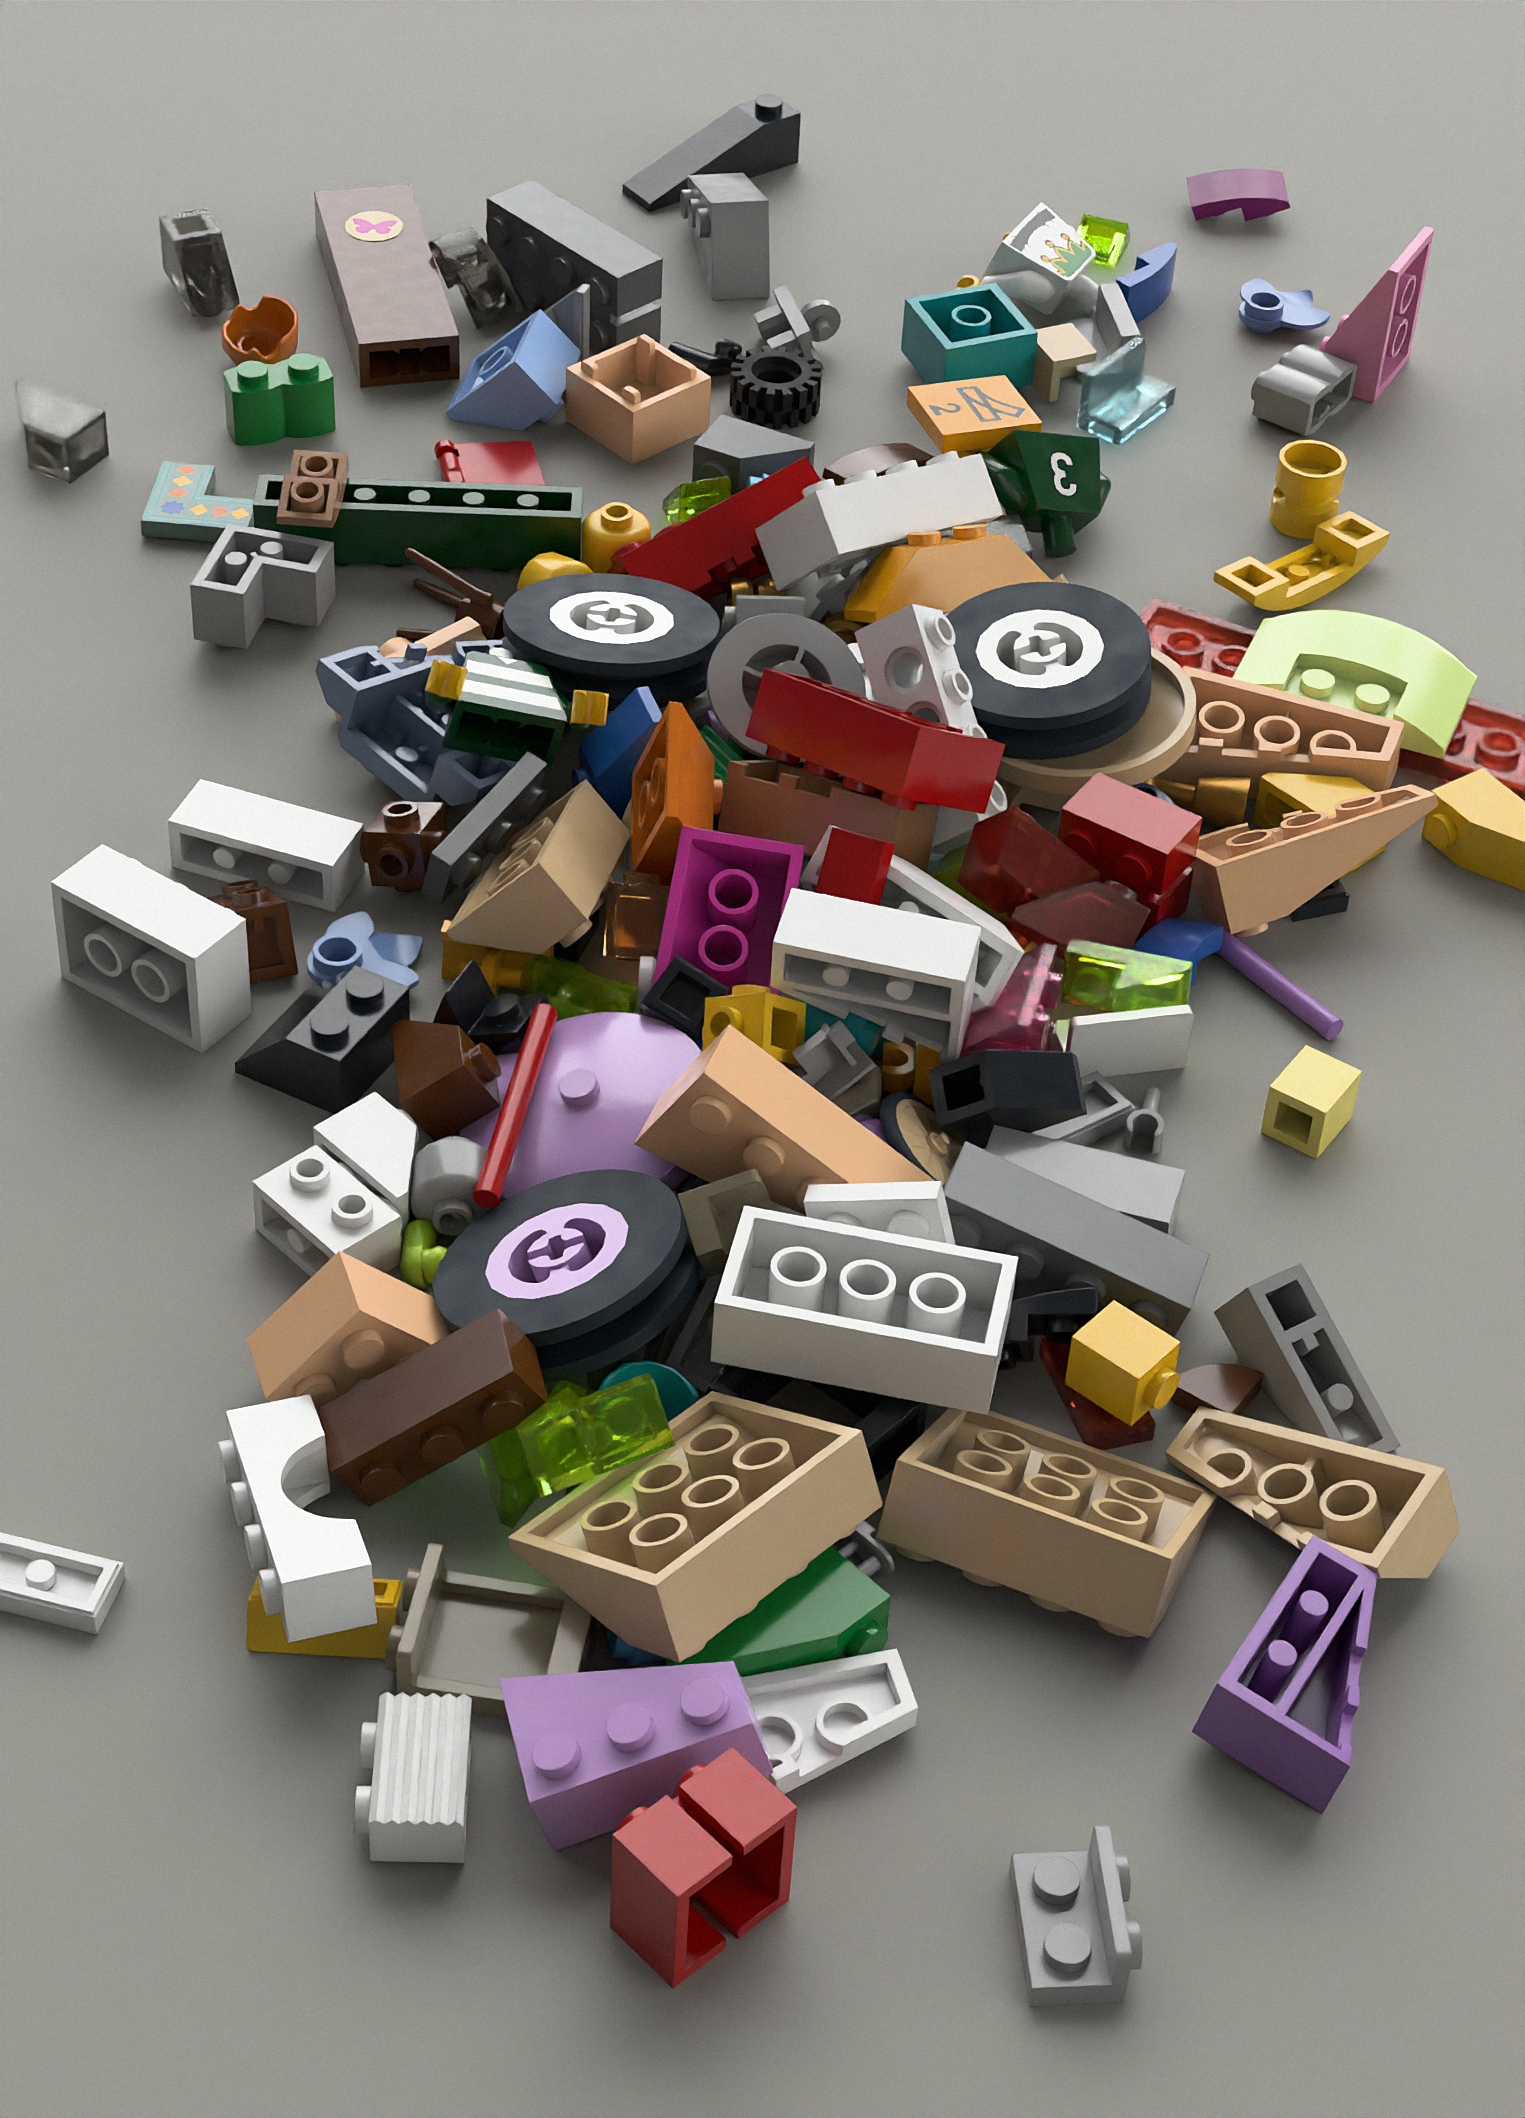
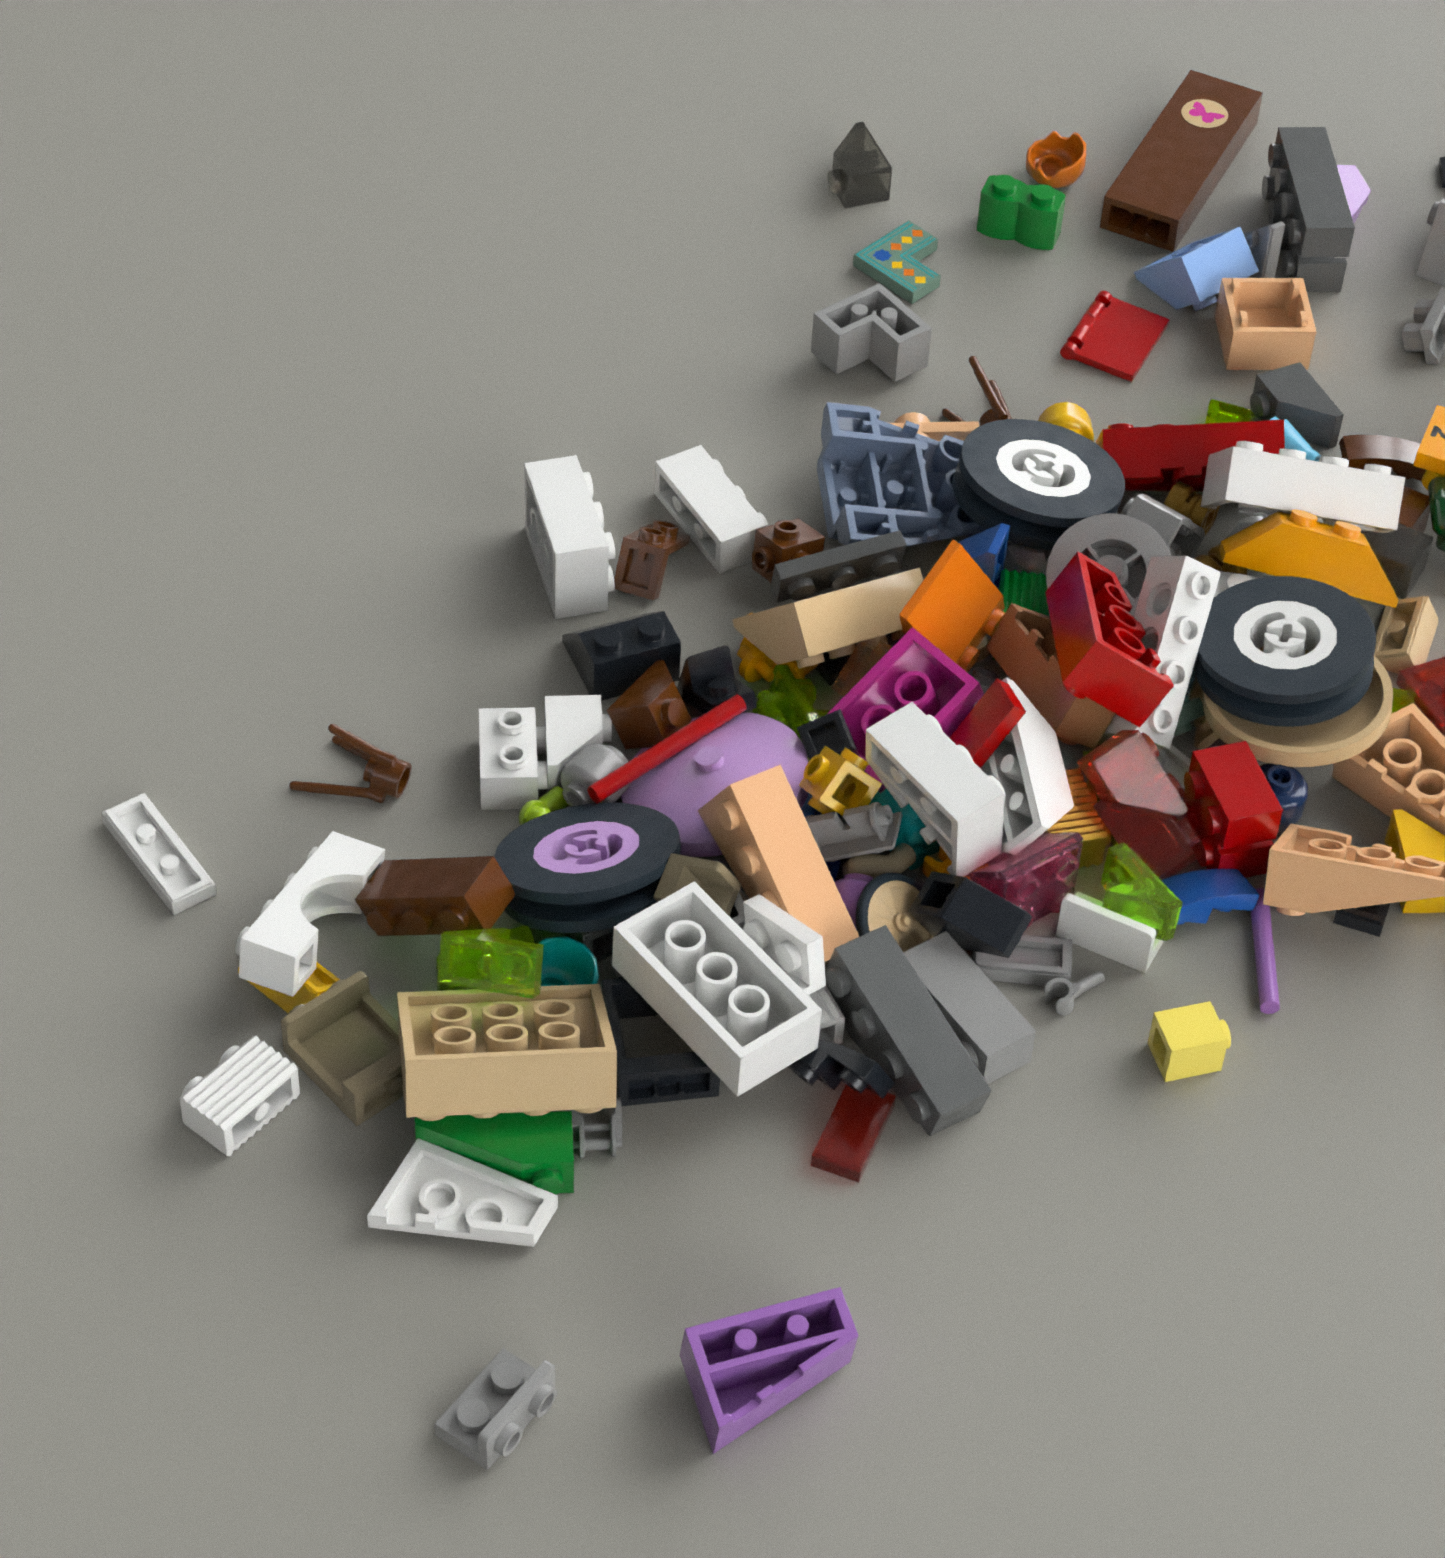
camera: 40 degrees right, 5 degrees up
(196, 1318) = (383, 771): none -> reddish brown plant
(198, 262) = (1065, 88): clear smoke slope -> none
(313, 489) = (949, 287): medium nougat slope -> none
(342, 1329) = (437, 822): light nougat brick -> none
(353, 942) = (700, 610): medium blue plate -> none
(444, 521) = (1019, 342): dark green brick -> none
(473, 267) = (1244, 182): clear smoke slope -> none
(507, 706) = (910, 489): dark green torso -> none
(608, 531) = (1136, 408): yellow head -> none
(623, 1739) = (348, 1147): lavender wedge -> none
(709, 363) = (1350, 320): black arm -> none
(718, 1840) = (301, 1213): red piece -> none
(775, 387) = (1366, 346): black tyre -> none
(1046, 1518) = (732, 1181): tan slope -> none
(1123, 1363) = (863, 1120): yellow brick -> none
(1213, 798) = (1359, 810): pearl gold piece -> none
(1218, 1387) = (925, 1179): reddish brown tile -> none
(1304, 1360) = (986, 1202): light grey slope -> none
(1359, 1500) = (899, 1281): tan wedge -> none

